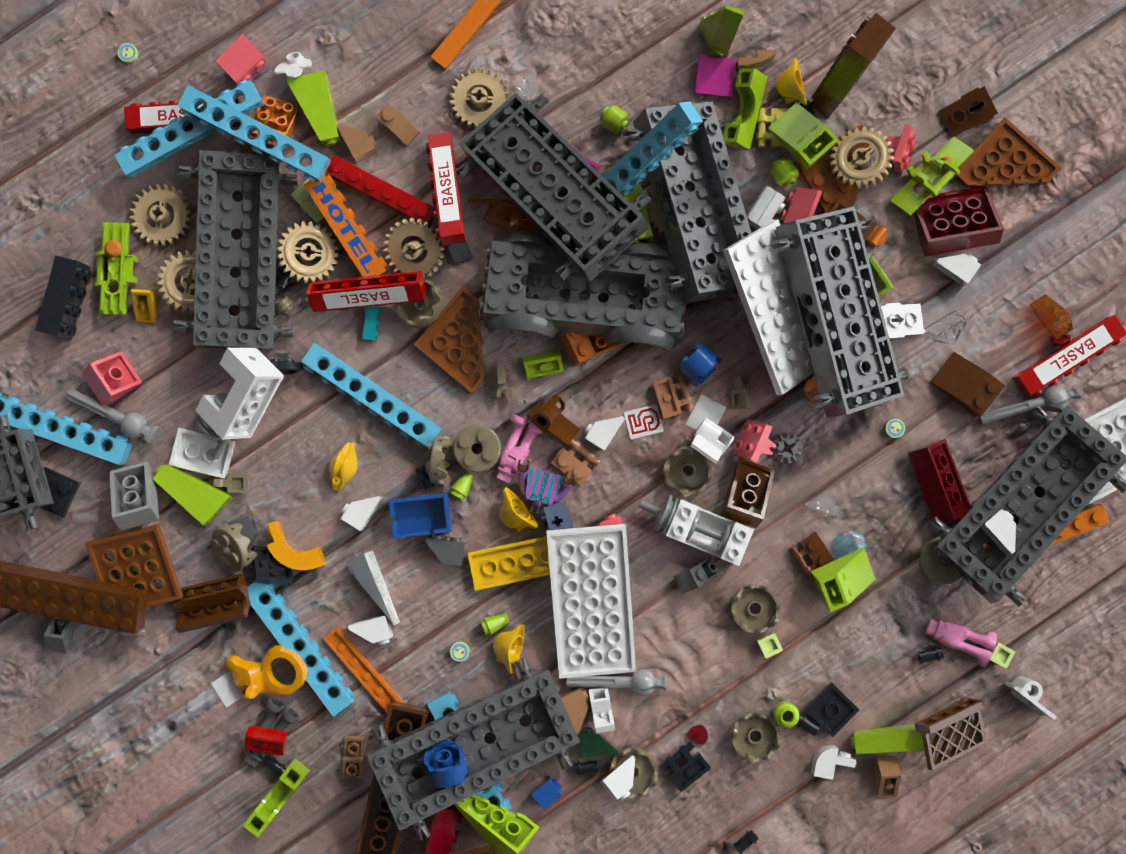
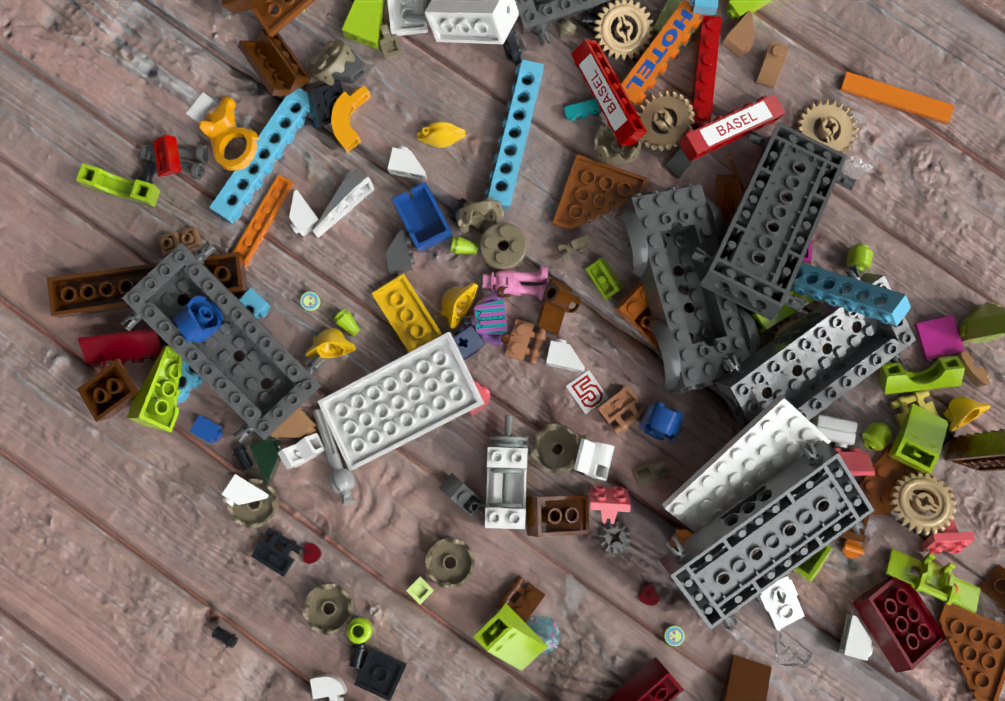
camera: 75 degrees right, 5 degrees down
(705, 408) = (623, 447): white sticker -> none
(850, 438) = (648, 596): none -> dark red piece

